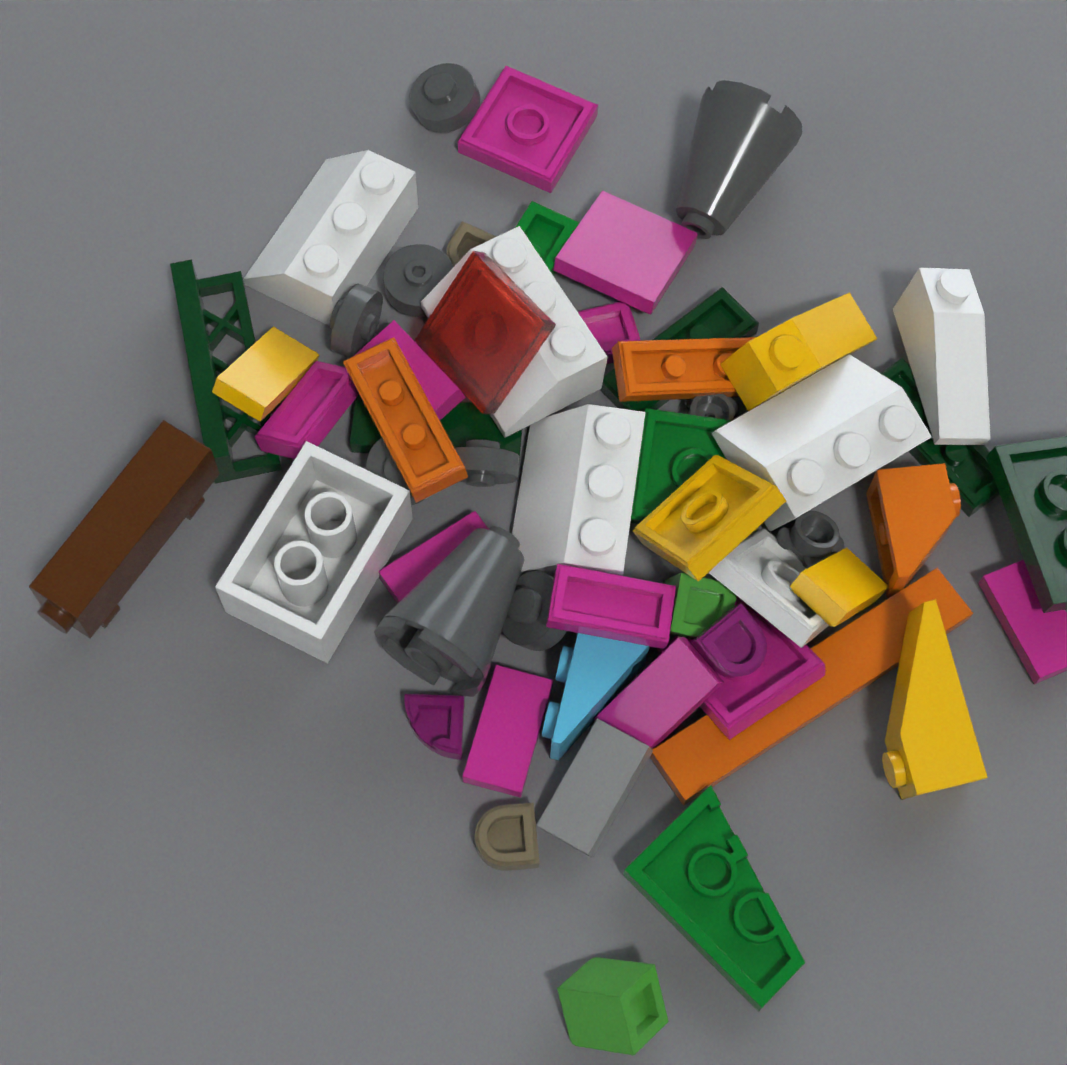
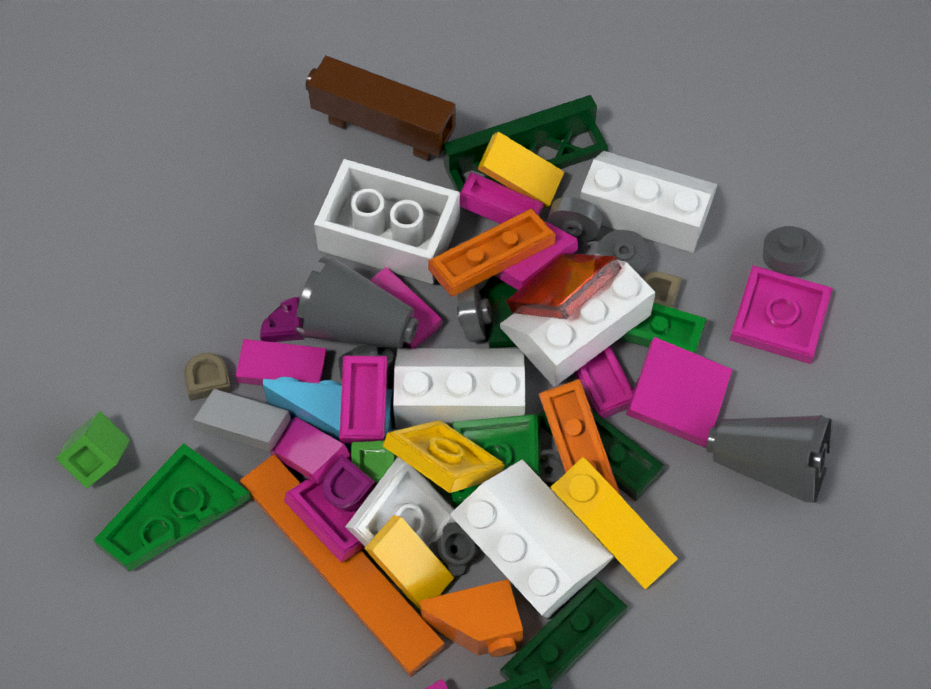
camera: 85 degrees right, 5 degrees down
(929, 723) = (306, 637): yellow slope -> none
(947, 353) = (625, 633): white slope -> none

